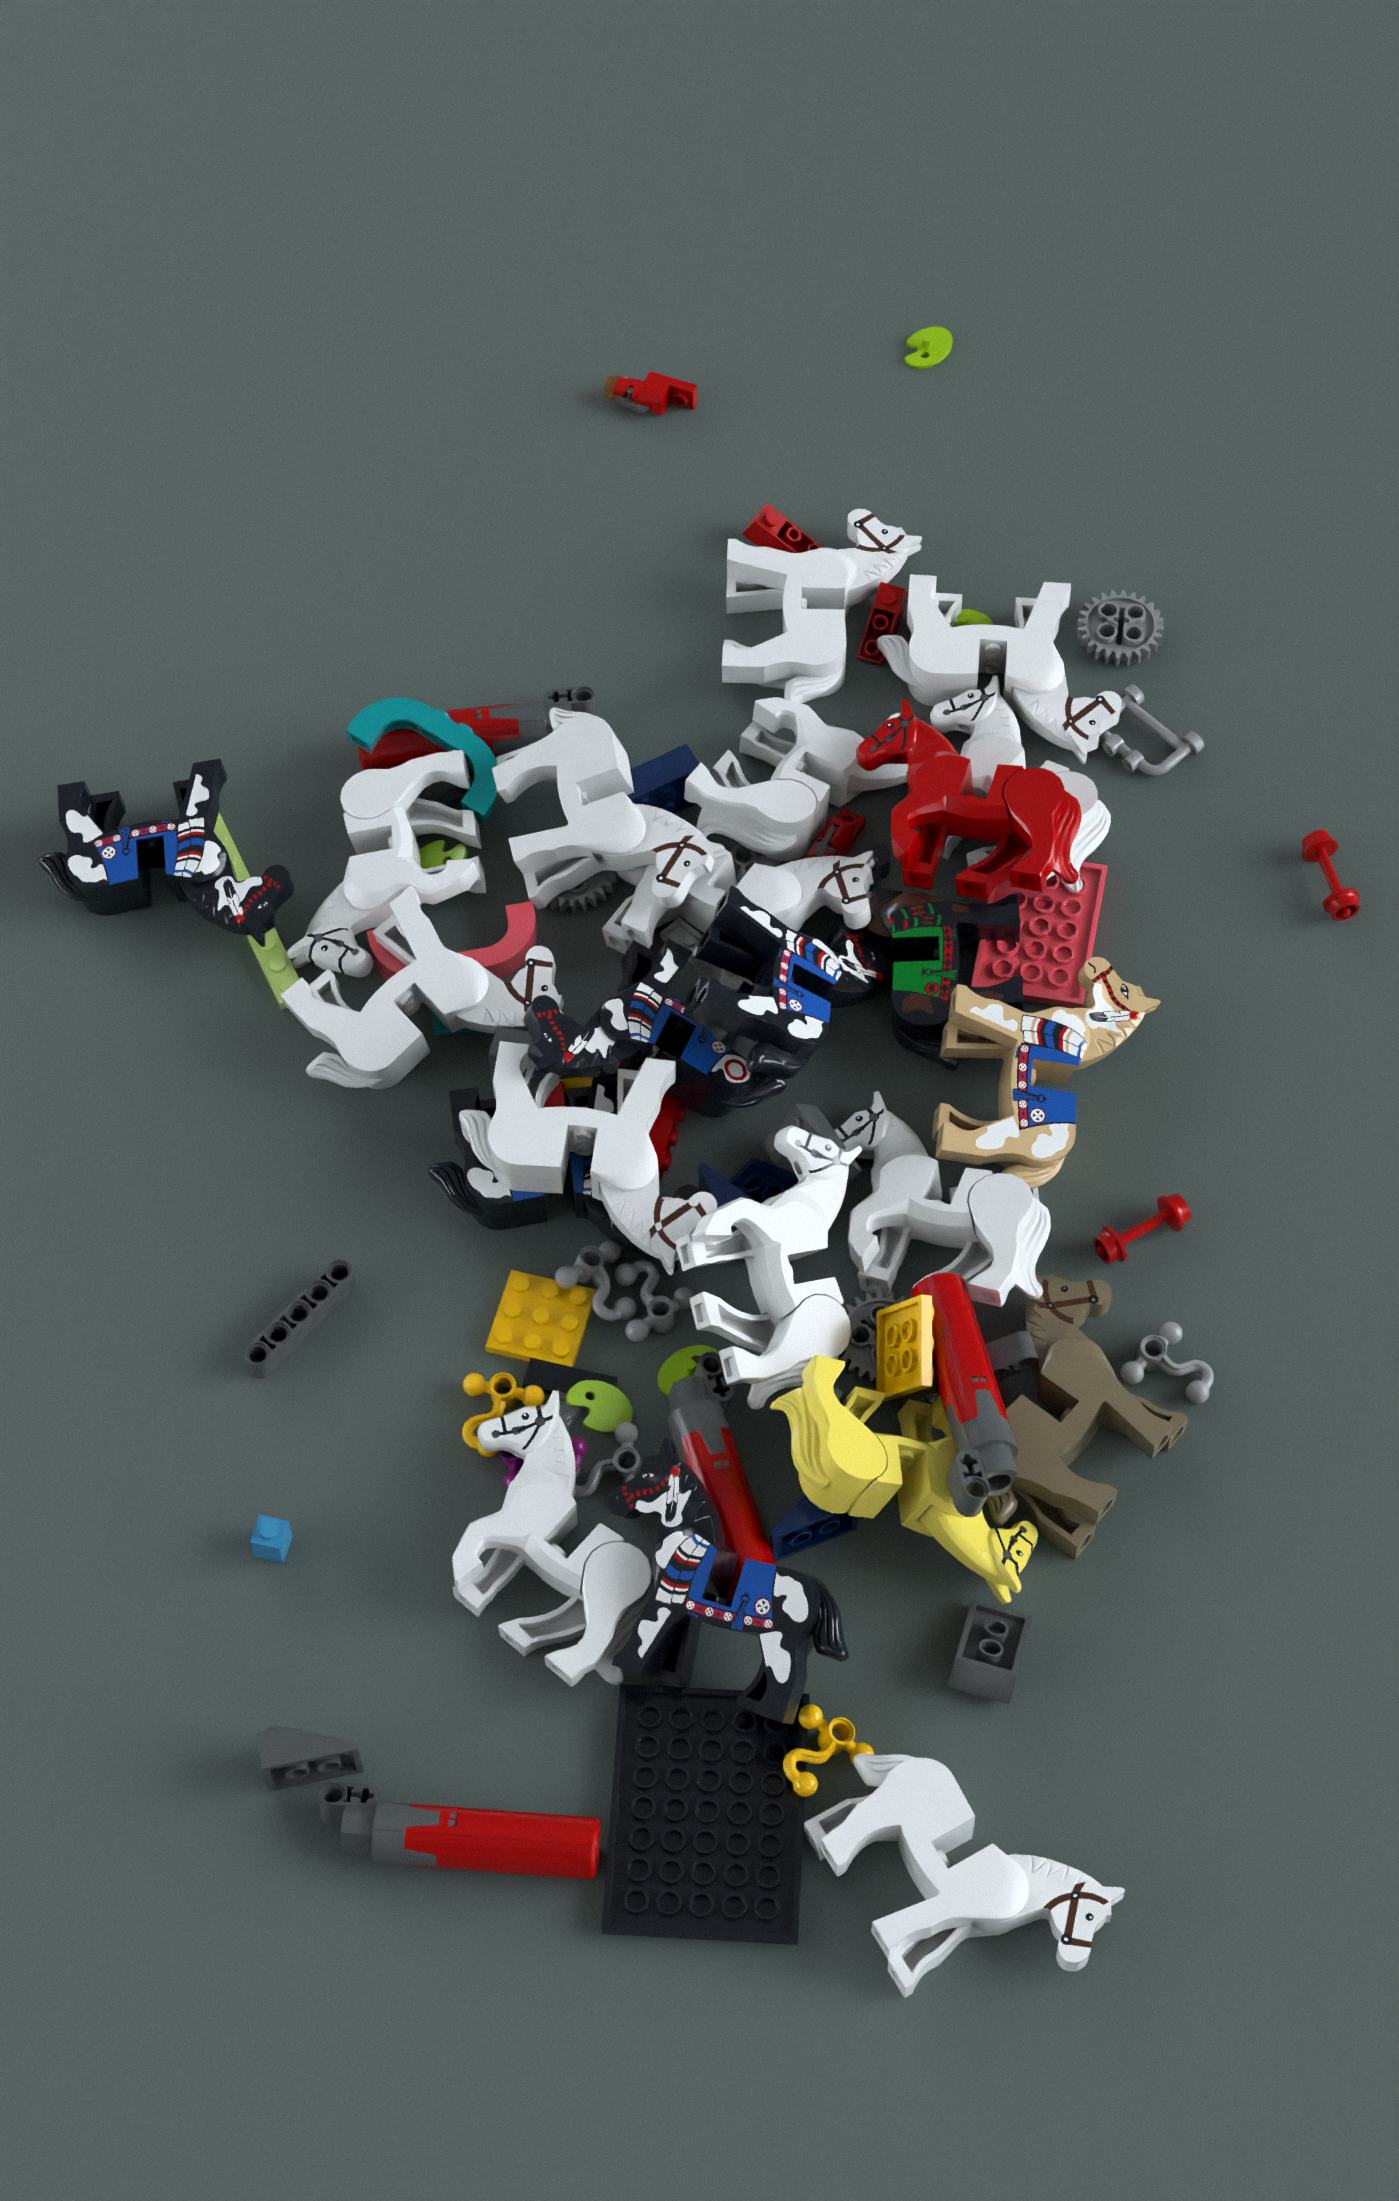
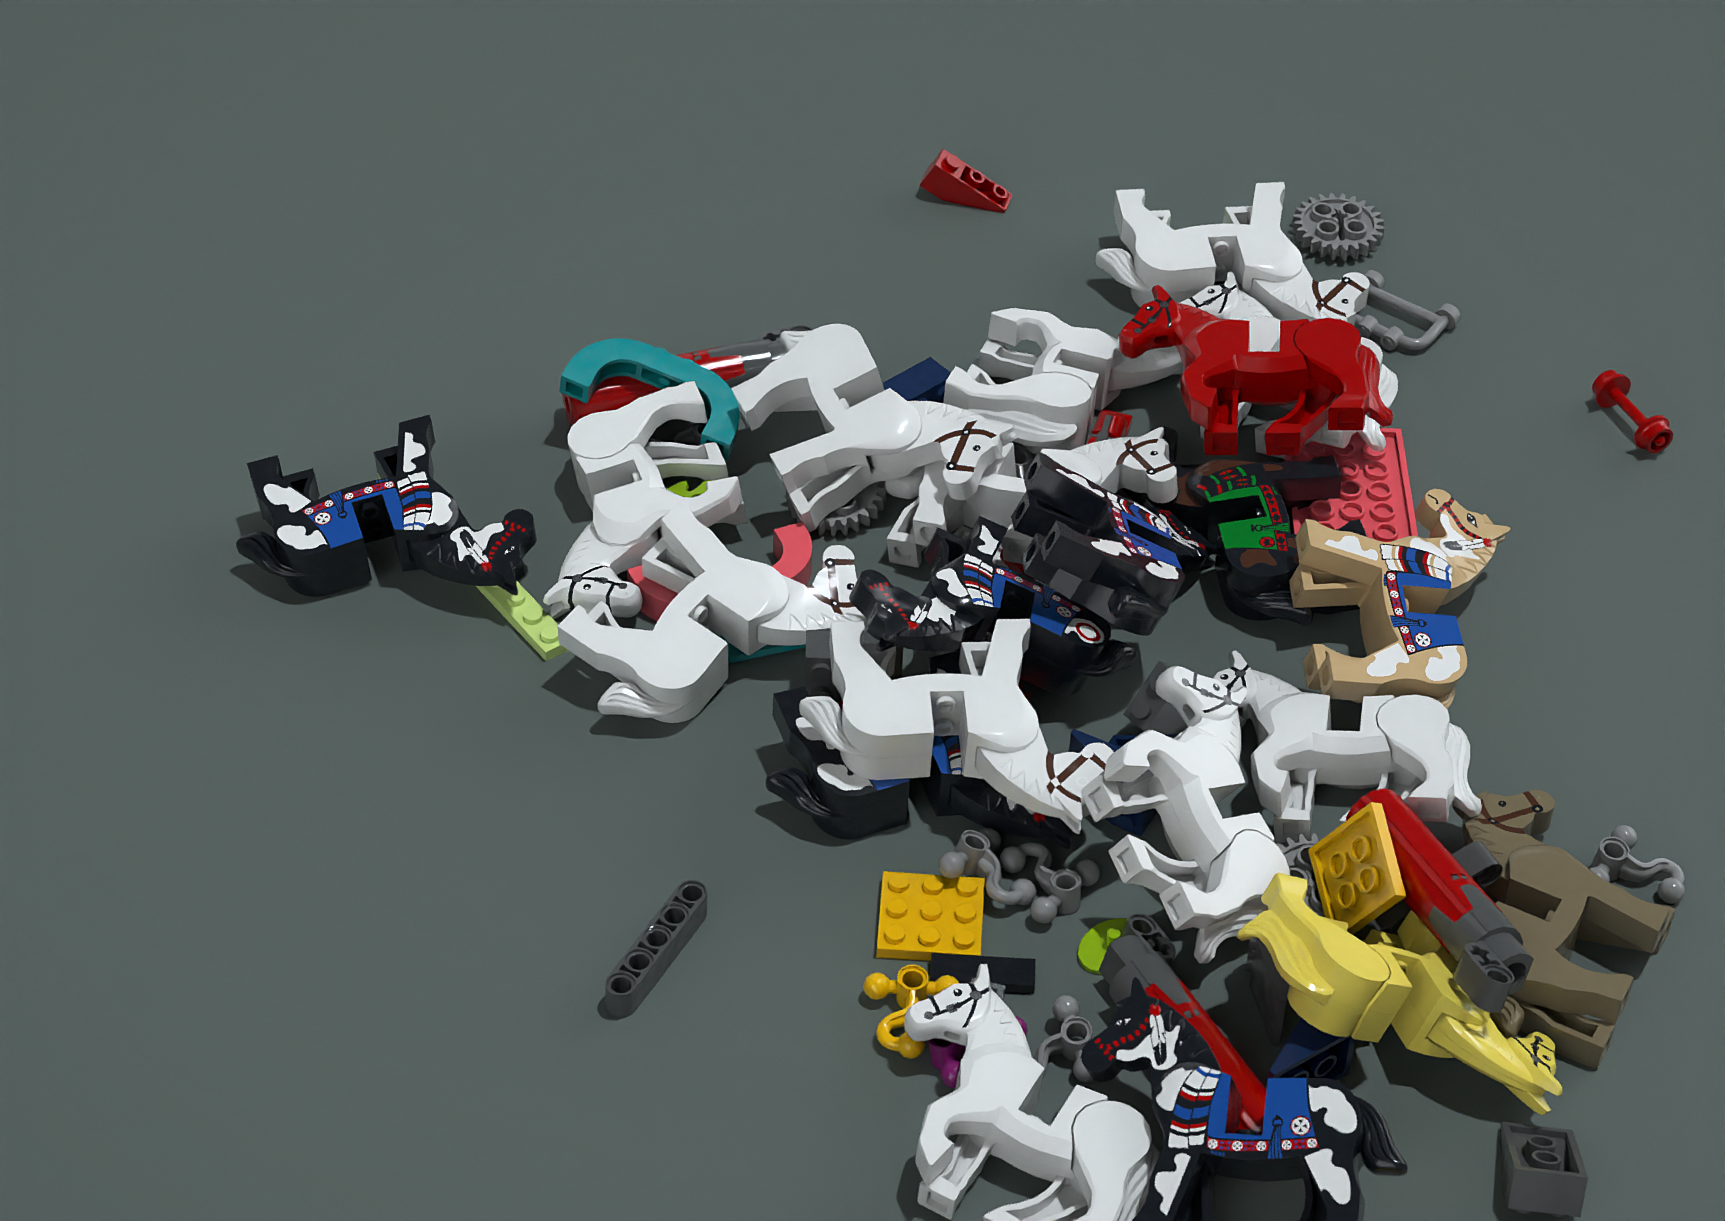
camera: 15 degrees left, 15 degrees down
(271, 1539) = (688, 1170): dark azure brick -> none
(606, 1409) = (1032, 992): lime piece -> none
(652, 394) = (786, 76): red plate -> none
(815, 599) = (1015, 225): white animal -> none
(883, 620) = (1093, 237): red slope -> none
(929, 341) = (1056, 12): lime piece -> none
(1173, 1212) = (1534, 765): red piece -> none

